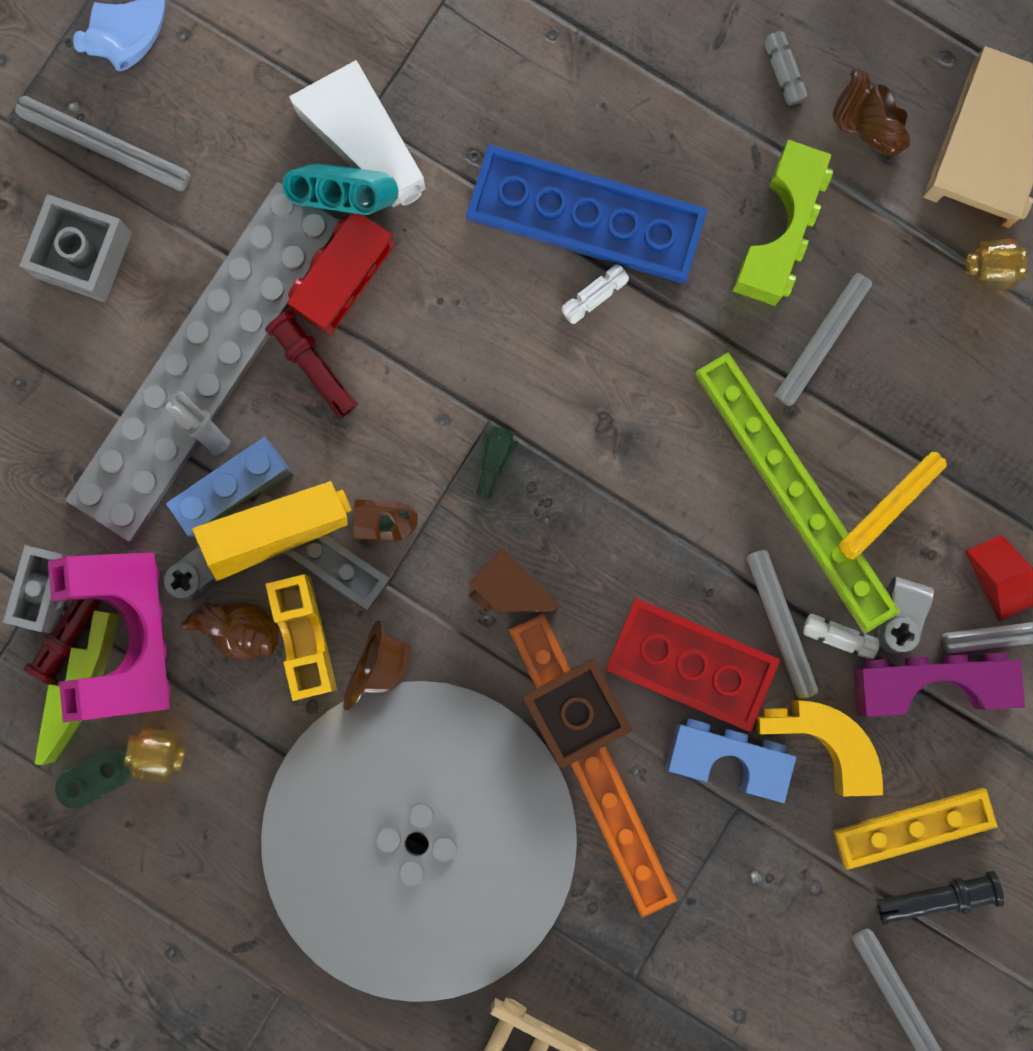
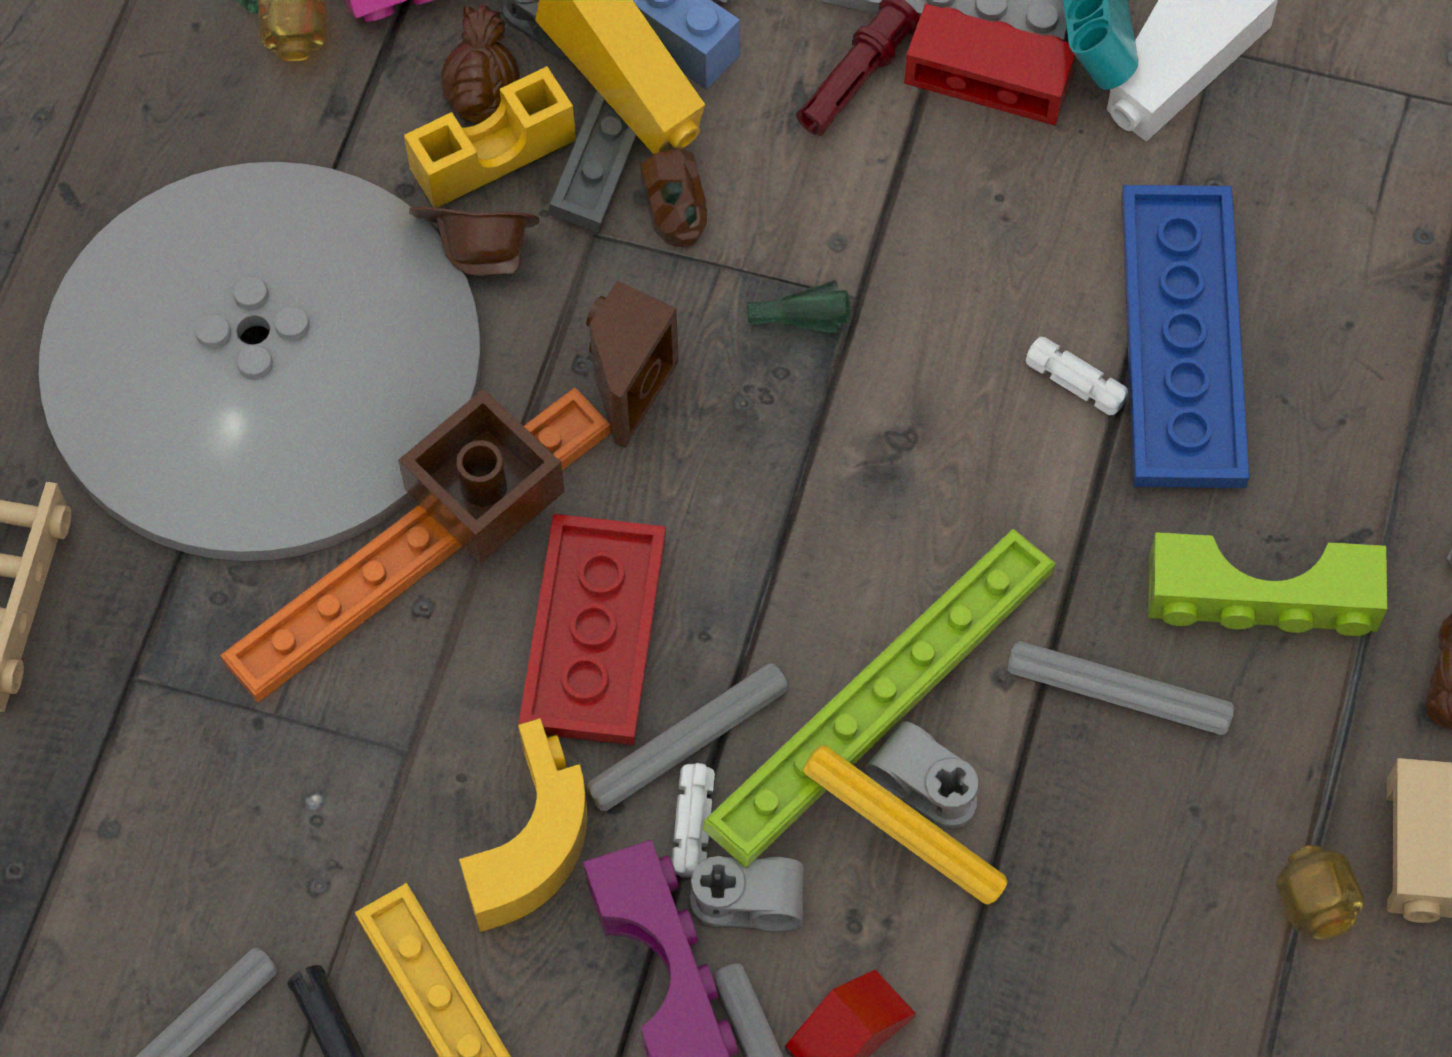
camera: 75 degrees right, 20 degrees down
(765, 767) = (471, 758): medium blue arch -> none
(851, 484) = (917, 772): none -> light grey piece

